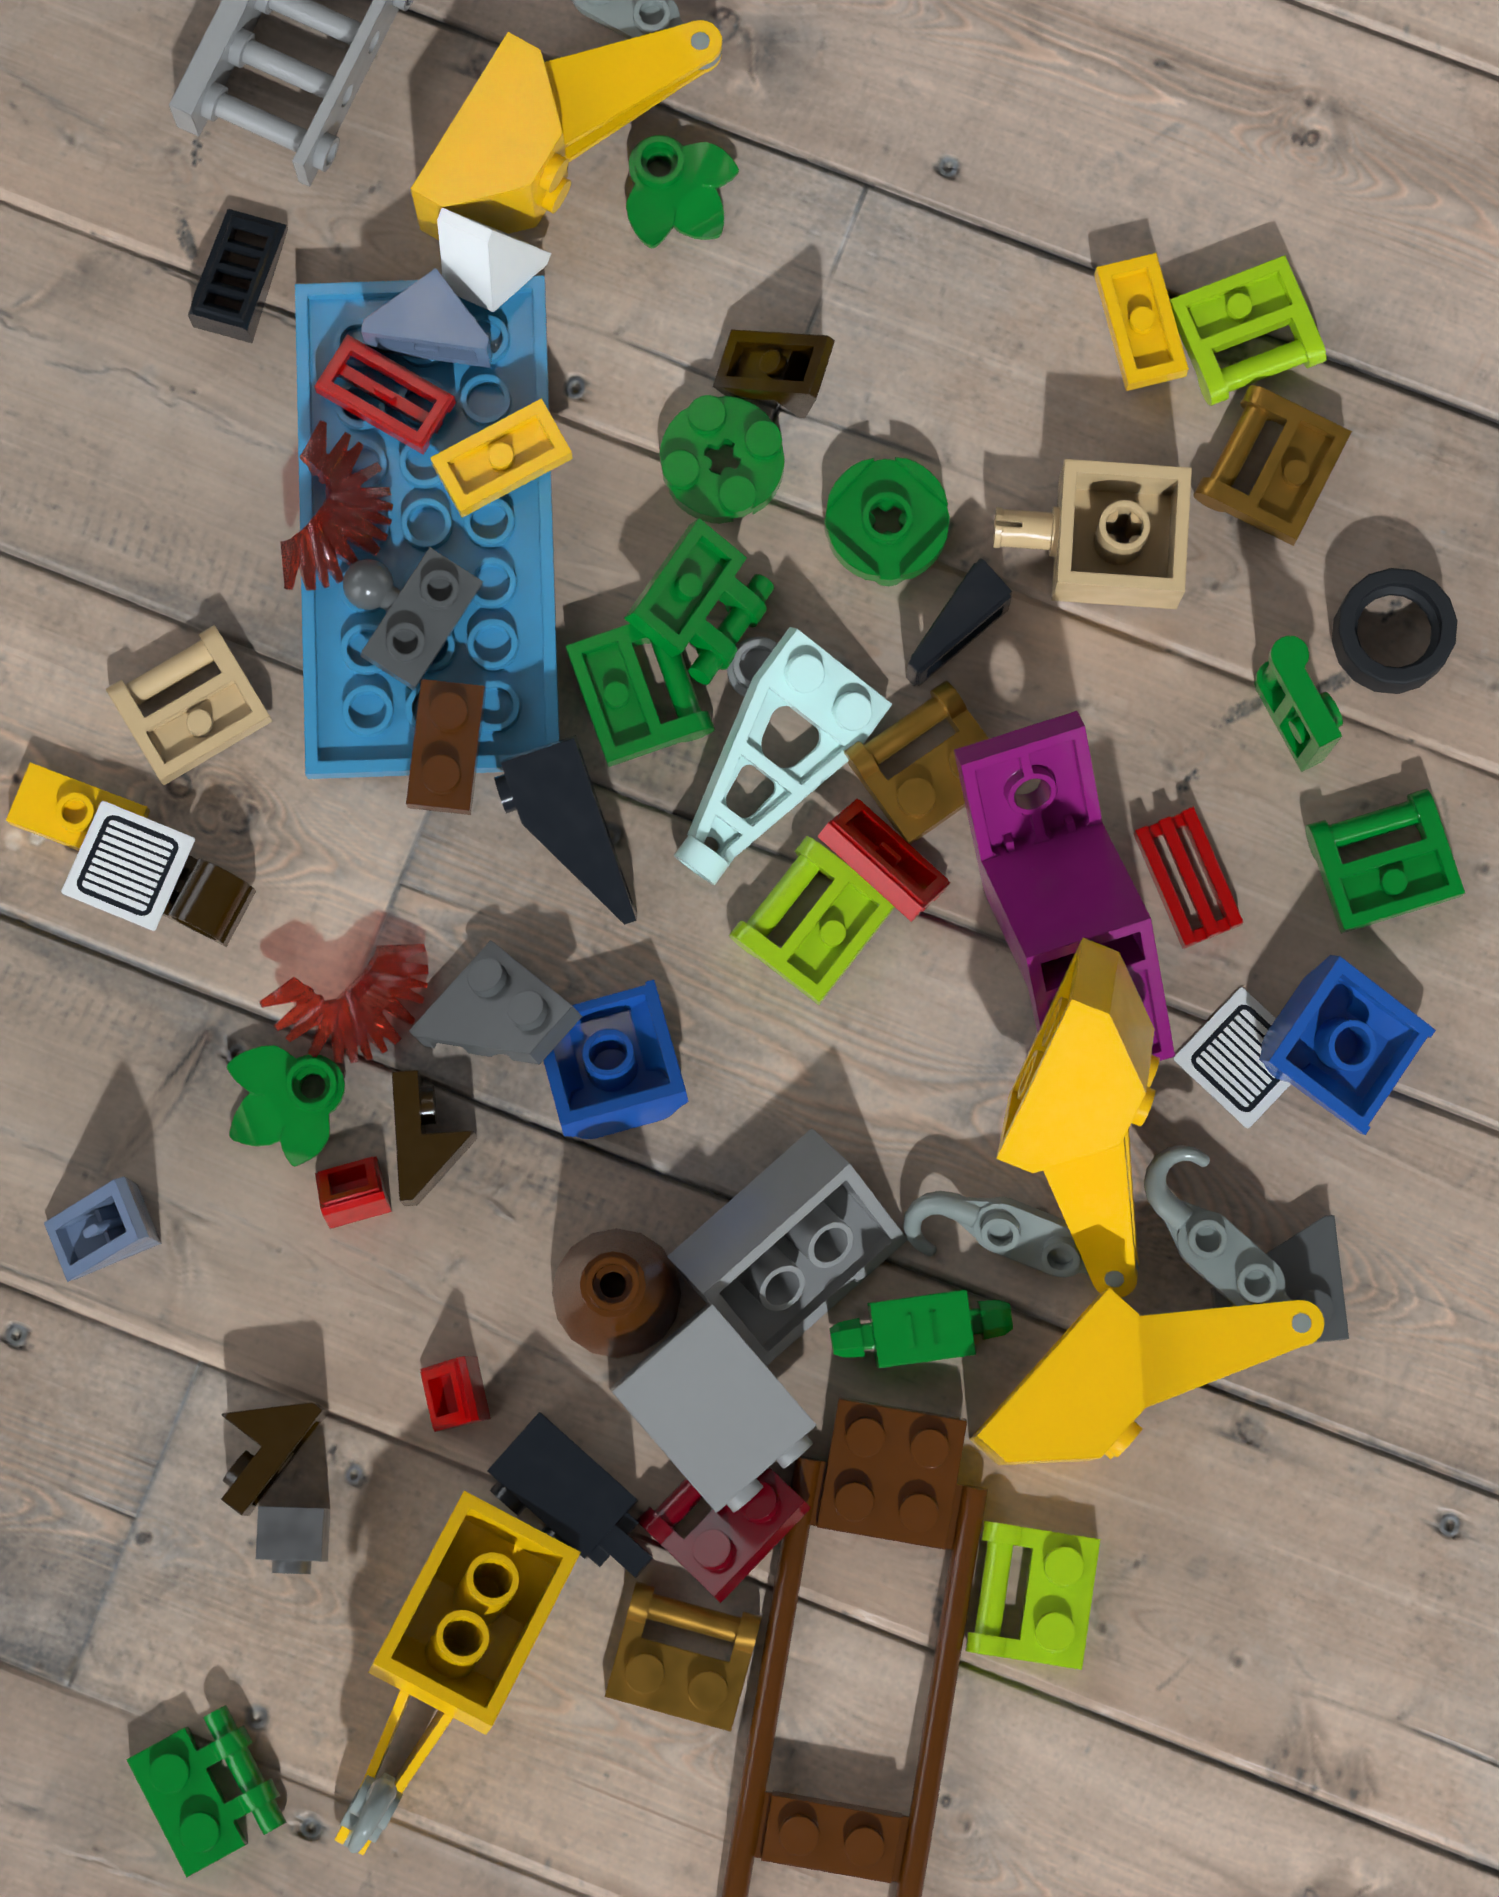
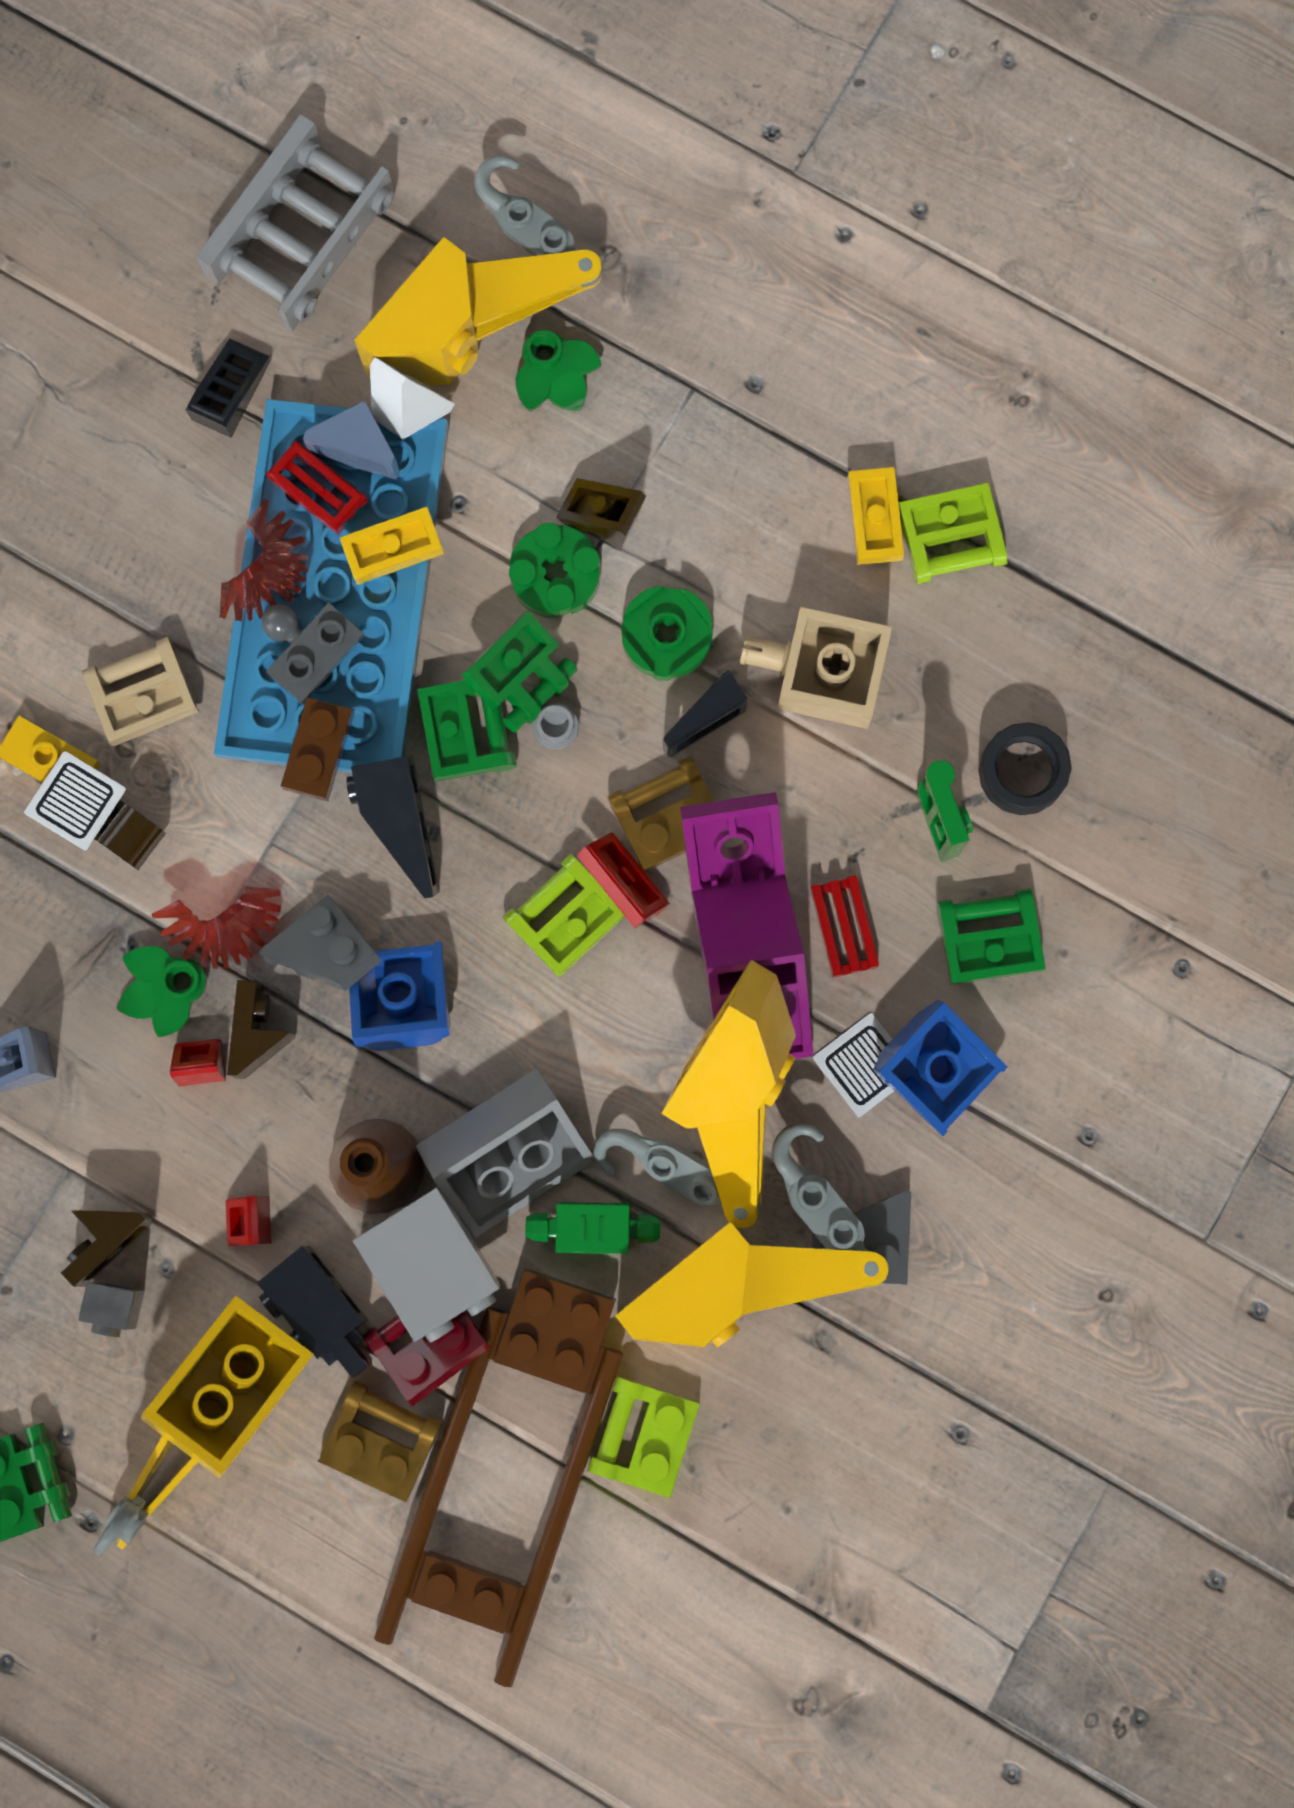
camera: 15 degrees right, 0 degrees up
(822, 693) = (601, 754): light aqua plate -> none
(1291, 474) = (968, 642): pearl gold plate -> none

